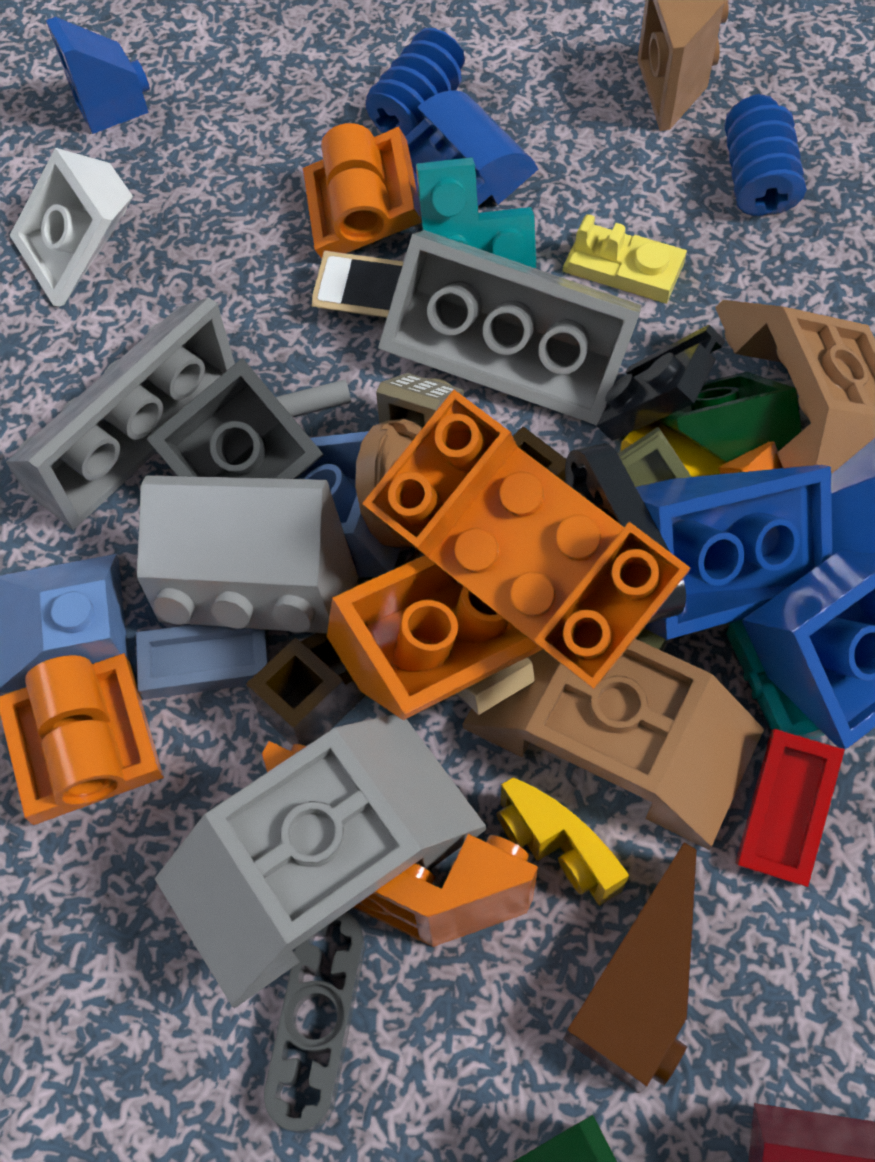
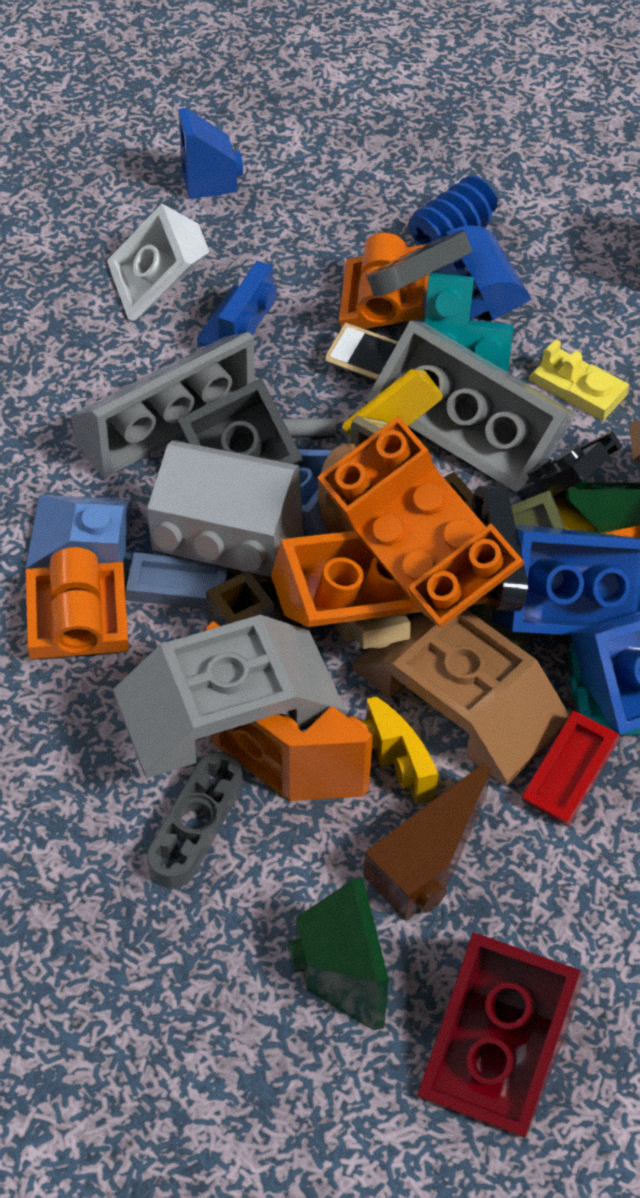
camera: 10 degrees right, 10 degrees down
(191, 261) = (242, 306): none -> blue bracket
(398, 155) = (419, 263): none -> dark grey beam
(424, 346) = (406, 398): none -> yellow slope

